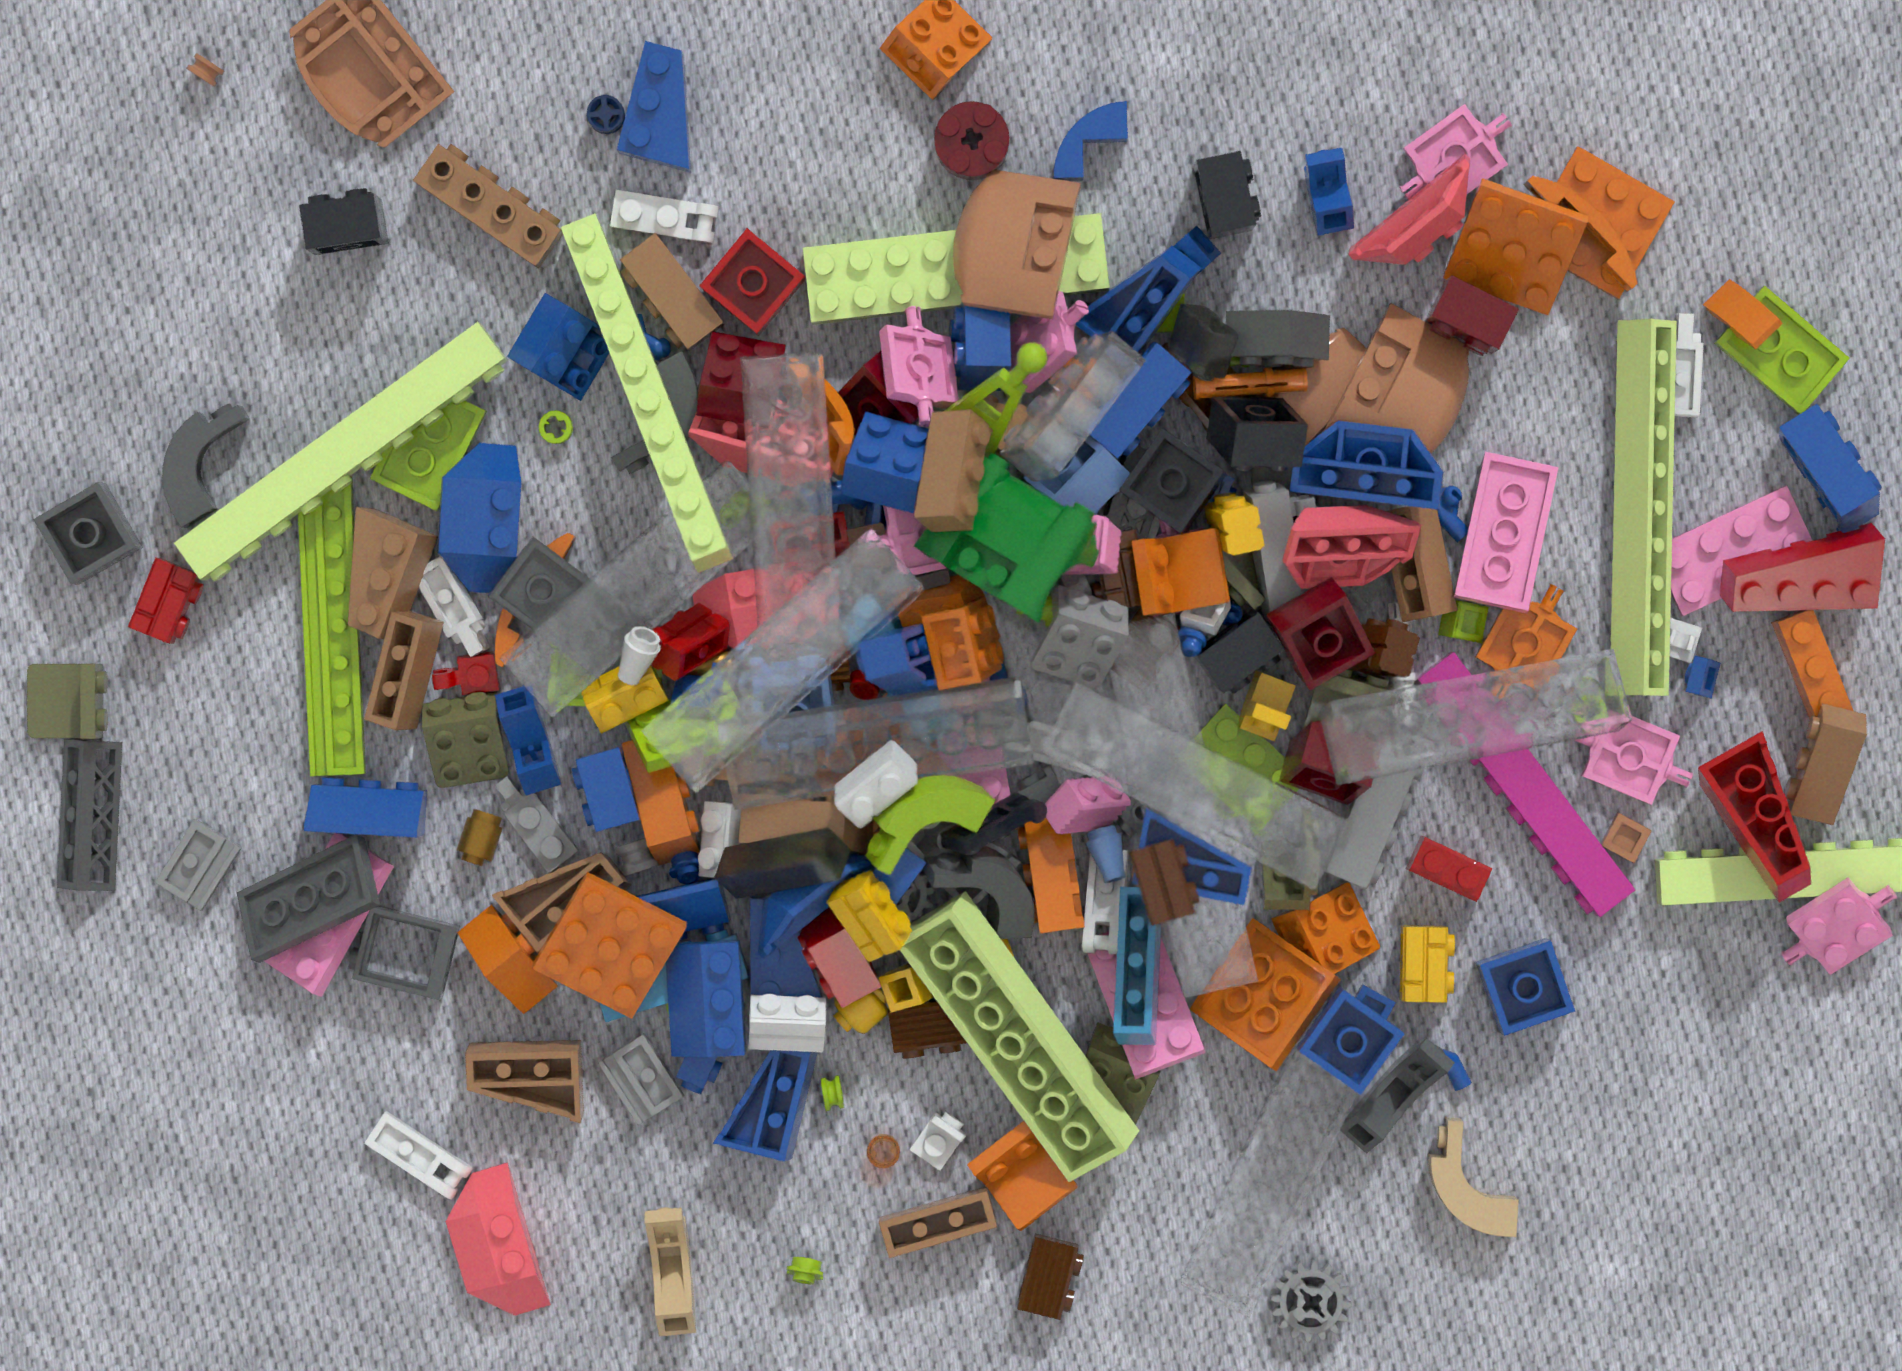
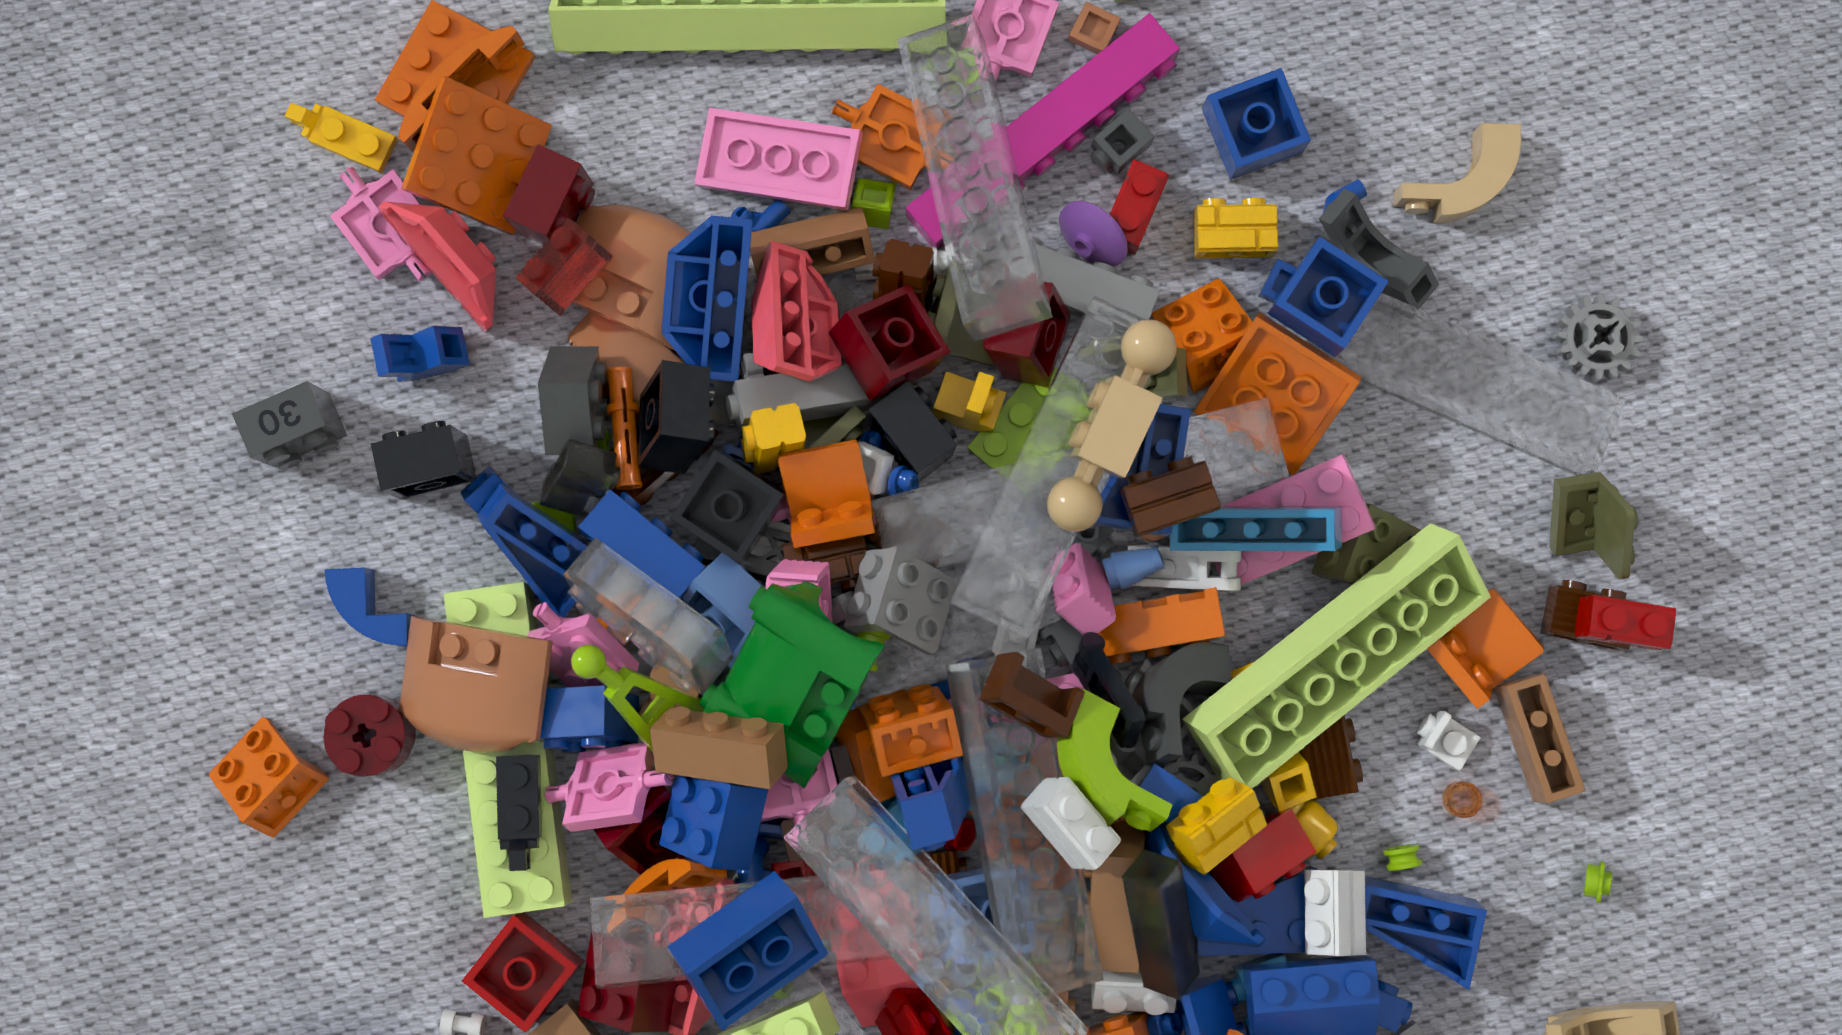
camera: 90 degrees left, 5 degrees down
(773, 495) = (748, 950): none -> blue slope
(902, 283) = (519, 807): none -> black hinge
(988, 751) = (1030, 697): none -> reddish brown panel
(1041, 1301) = (1625, 622): none -> red brick
(1138, 1279) = (1595, 517): none -> olive bracket
(1226, 832) = (1114, 427): none -> tan brick
(1262, 70) = (290, 425): none -> dark grey brick
(1403, 330) = (563, 266): none -> clear red brick
(1422, 827) = (1093, 233): none -> medium lavender dish
(1522, 868) = (1126, 130): none -> dark grey brick
(1544, 116) = (344, 135): none -> yellow hinge

